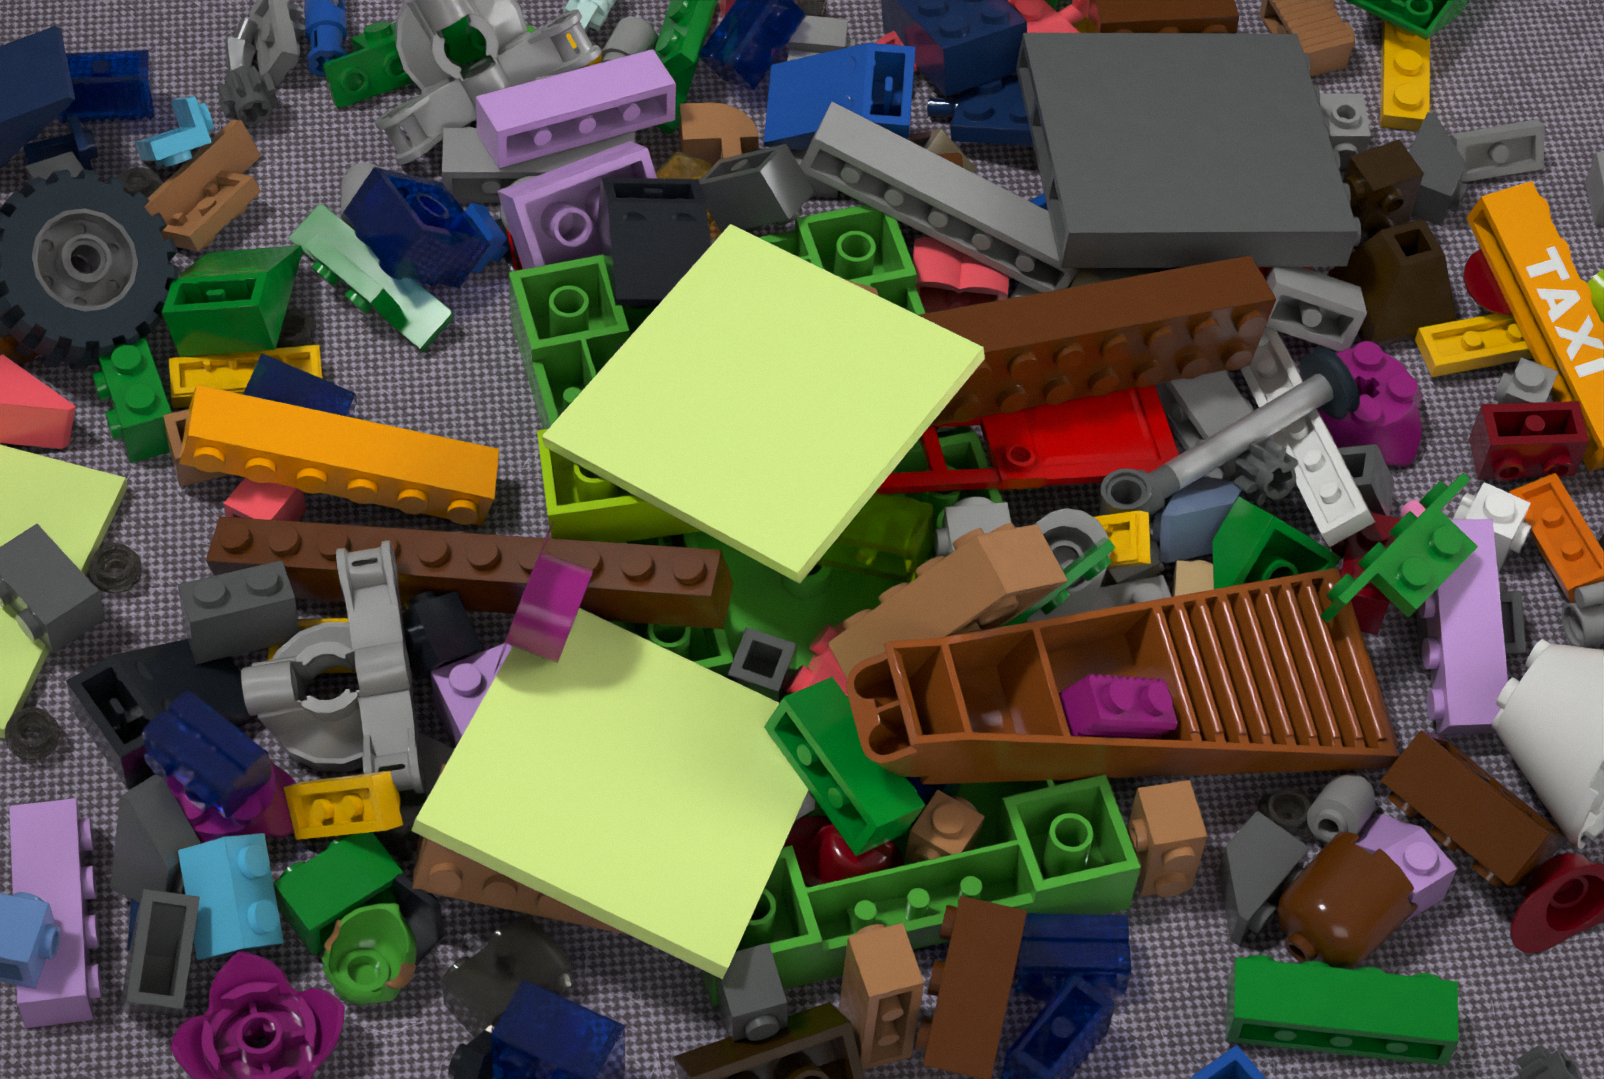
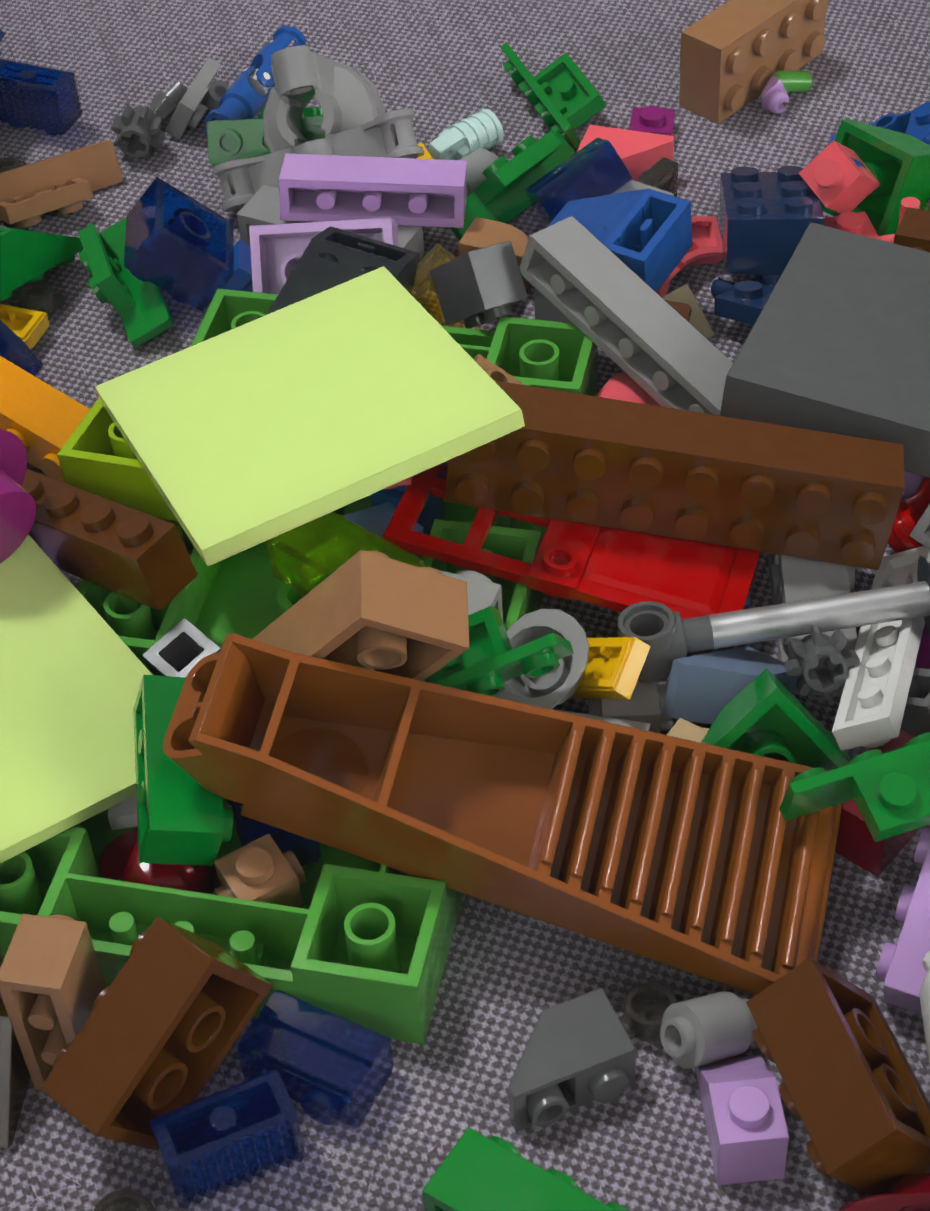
camera: 35 degrees right, 10 degrees down
(175, 145) = (49, 140): medium azure bracket -> none
(1118, 707) = (469, 804): magenta brick -> none
(1166, 838) = (478, 976): medium nougat brick -> none
(1344, 904) = (632, 1127): reddish brown cylinder -> none

